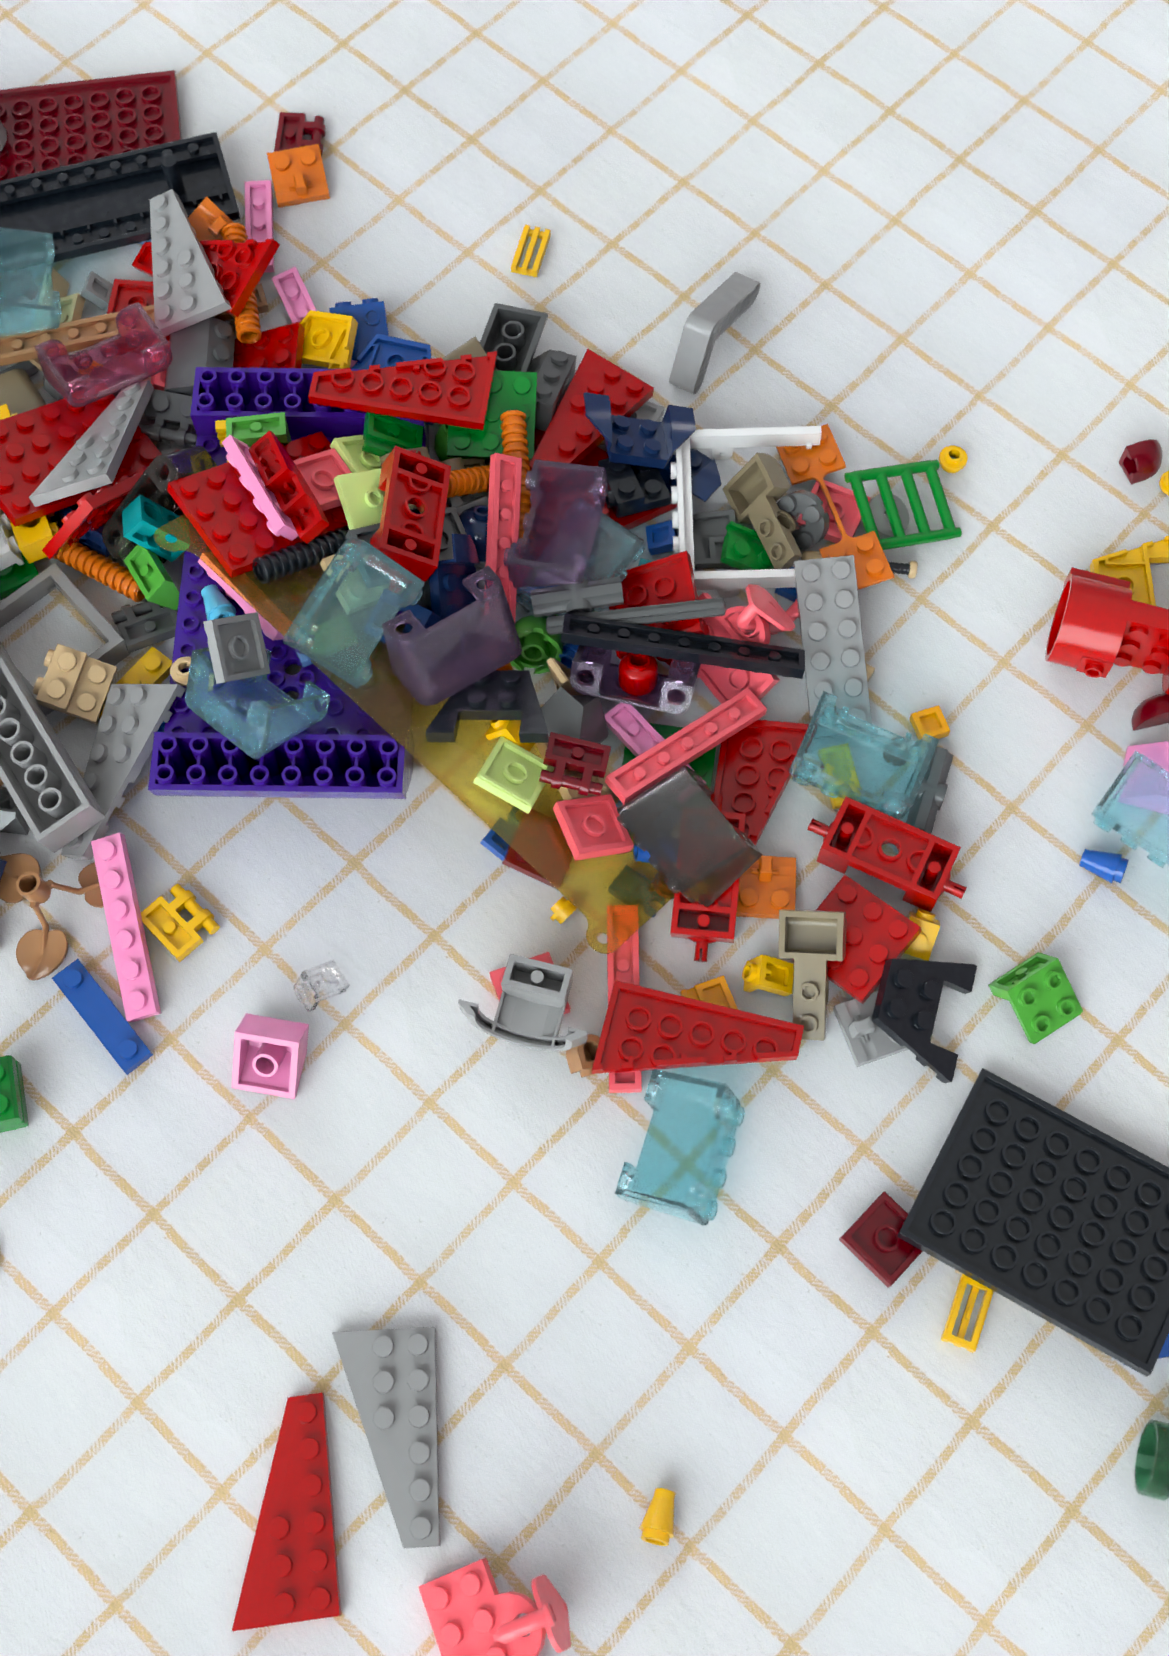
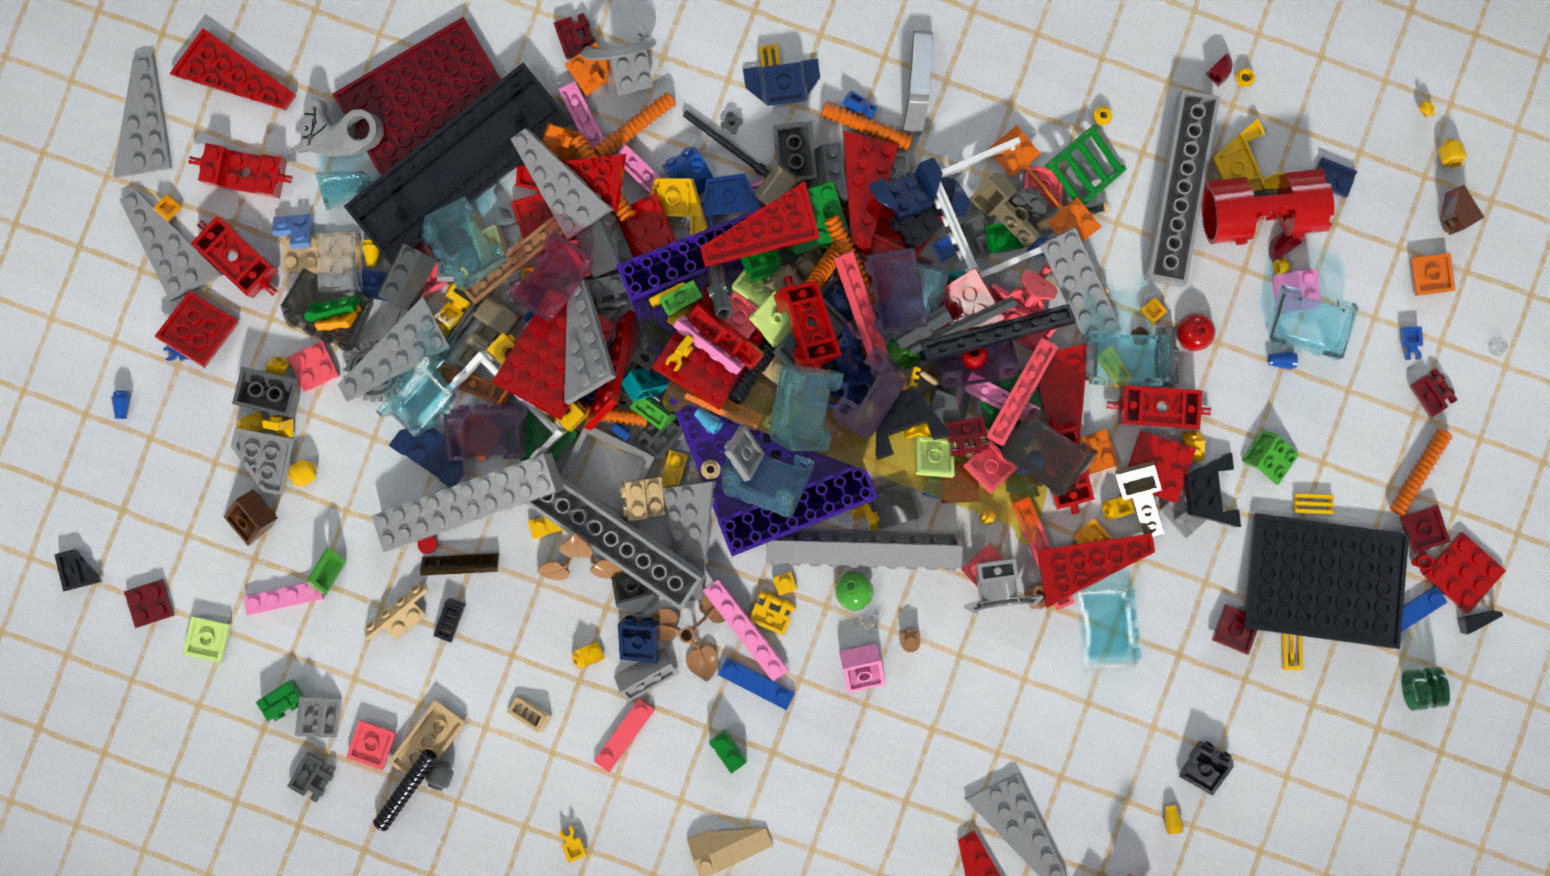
camera: 25 degrees left, 20 degrees up
(100, 597) = (622, 431): none -> blue plate
(216, 475) = (683, 349): none -> yellow plate
(219, 889) = (784, 583): none -> yellow plate
(312, 436) = (720, 291): none -> dark grey piece
(312, 934) = (854, 591): none -> bright green cylinder
(328, 248) = (635, 125): none -> orange piece
(342, 173) = (628, 65): none -> light grey piece
(347, 872) = (867, 549): none -> light grey brick
(363, 1043) = (910, 639): none -> medium nougat plate
(382, 832) = (865, 510): none -> yellow bracket
(421, 307) = (759, 168): none -> black bar
(432, 842) = (894, 505): none -> dark grey plate
(446, 296) = (731, 118): none -> dark grey plate
(538, 270) = (782, 82): none -> dark blue piece
(542, 675) = (913, 377): none -> yellow tile
(619, 354) = (866, 125): none -> orange piece
(621, 327) = (858, 103): none -> blue plate
(751, 1447) = (1207, 767): none -> black plate
(983, 777) = (1195, 332): none -> red cylinder
(1029, 582) = (1182, 188): none -> light grey brick
(1111, 1094) = (1330, 504): none -> yellow tile
(1144, 735) = (1281, 266): none -> yellow plate

